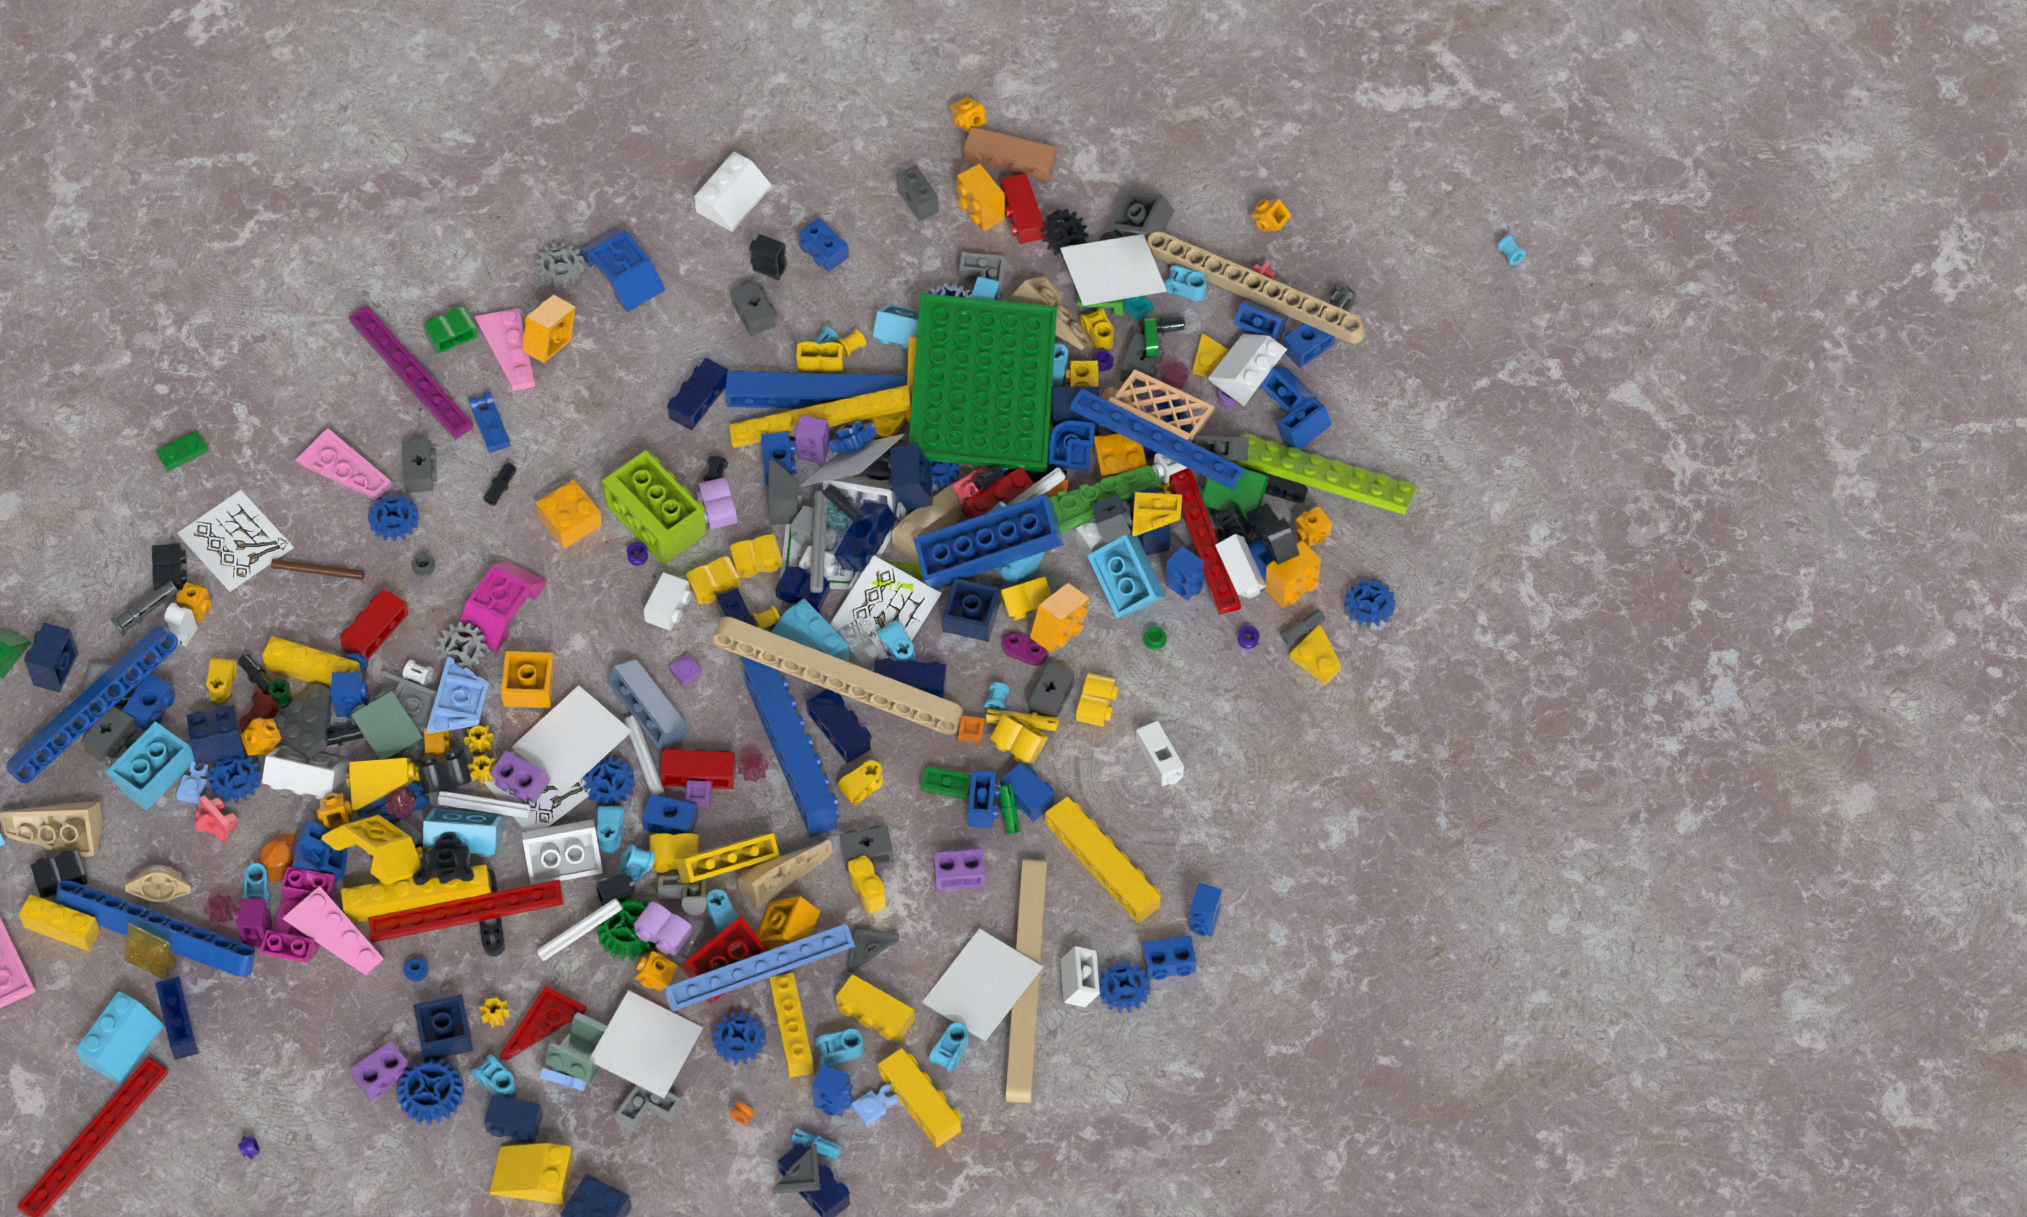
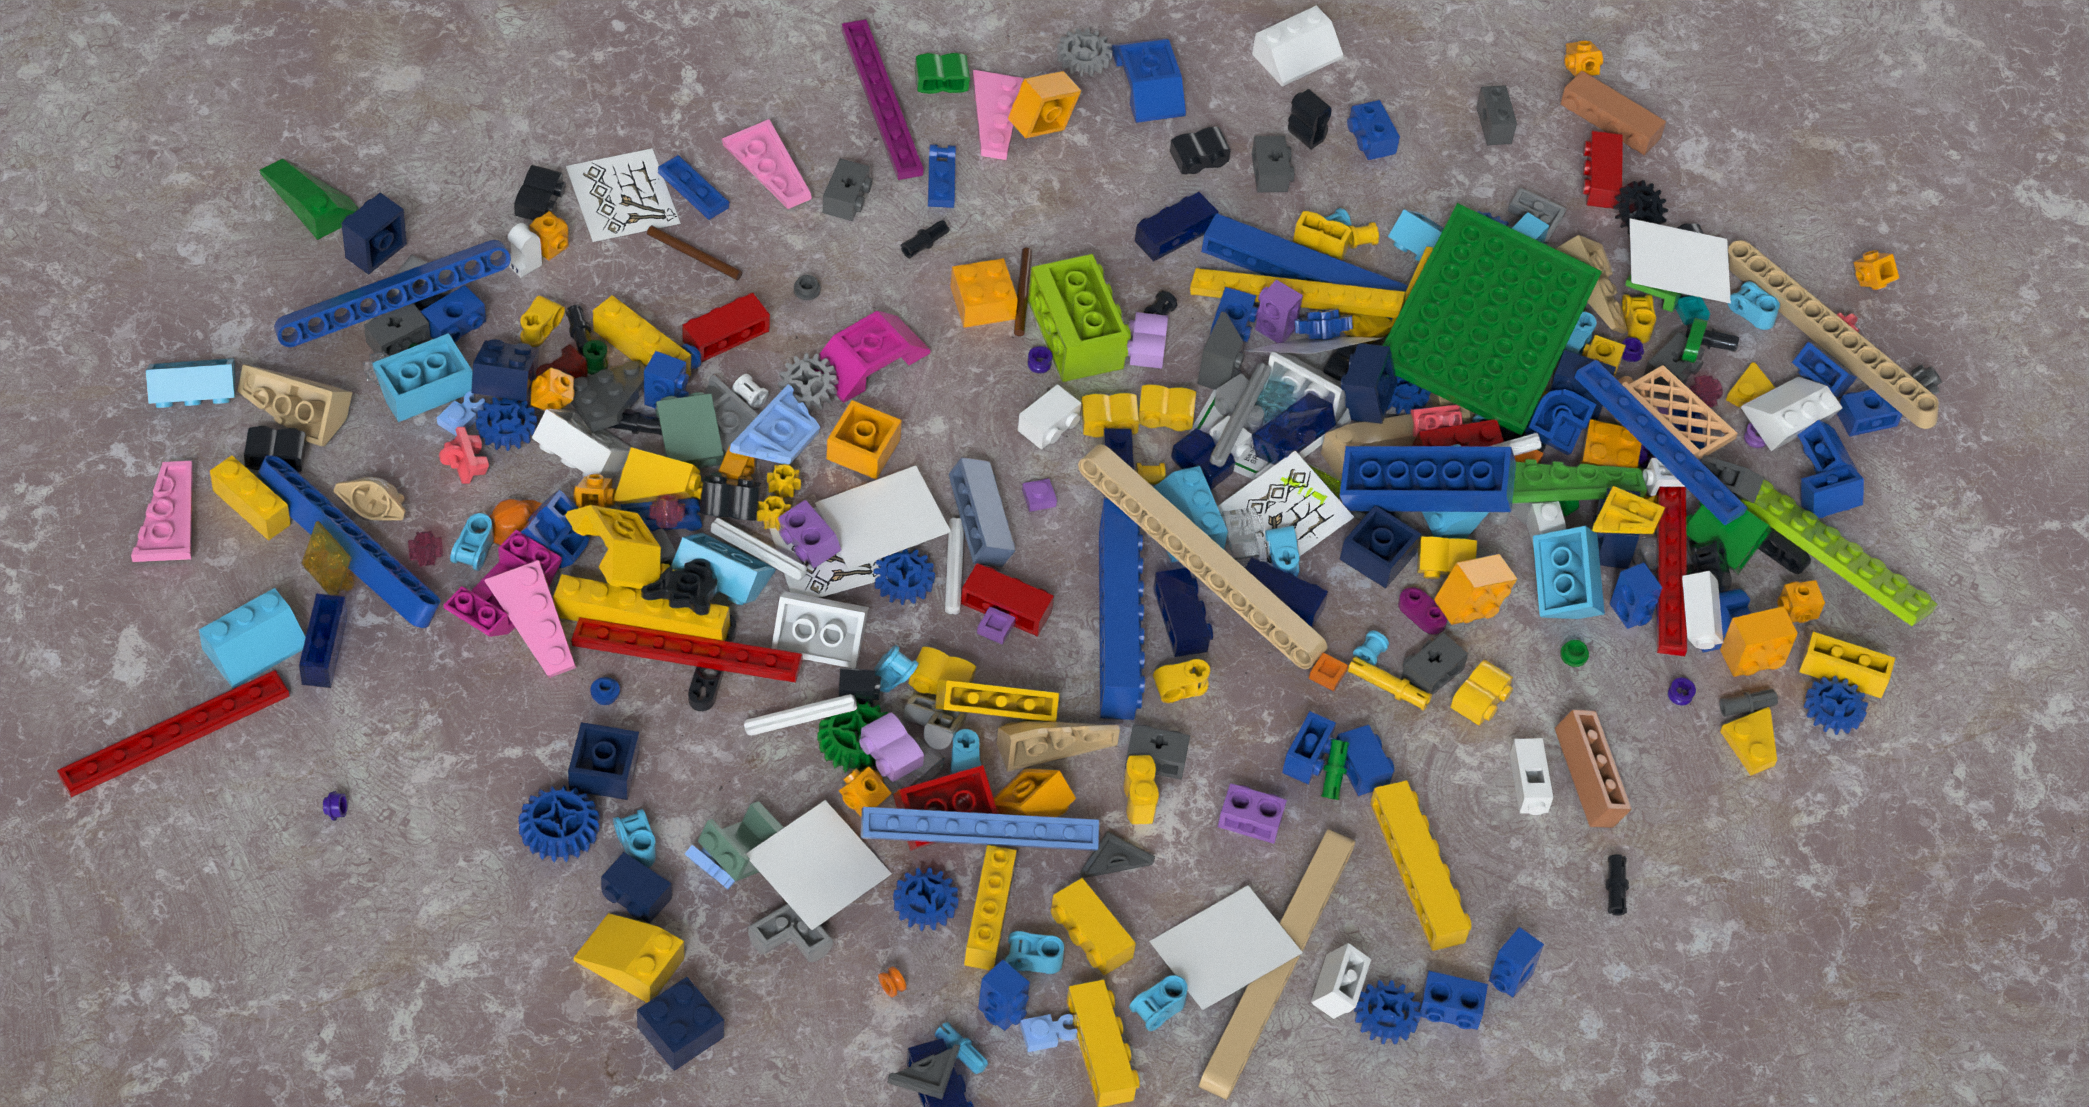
camera: 15 degrees right, 5 degrees down
(136, 613) = (482, 225): dark grey pin -> none
(181, 450) = (609, 89): green plate -> none
(253, 921) = (451, 570): magenta brick -> none
(290, 511) = (693, 187): none -> blue tile
(376, 1066) = (513, 774): medium lavender brick -> none
(393, 517) = (795, 229): blue gear -> none
(494, 1005) = (668, 767): yellow gear -> none
(545, 1016) = (721, 794): red wing -> none
(598, 498) = (1023, 289): none -> reddish brown bar
(609, 827) = (883, 623): medium azure piece -> none
(658, 808) = (946, 622): blue brick -> none
(690, 318) = (1200, 150): none -> black brick
(753, 767) = (1068, 620): clear pink gear -> none
(843, 503) = (1283, 384): black axle -> none
(946, 783) = (1275, 716): green plate -> none
(980, 198) = (1562, 141): light orange brick -> none
(984, 480) = (1447, 417): black pin -> none
(1018, 738) = (1376, 699): yellow brick -> none
(1112, 518) = (1577, 504): dark grey brick -> none
(1141, 213) = (1734, 216): dark grey slope -> none
(1204, 729) = (1592, 769): none -> nougat brick
(1257, 815) = (1617, 885): none -> black pin
(1273, 533) = (1753, 587): black beam -> none
(1379, 564) = (1838, 658): none -> yellow brick

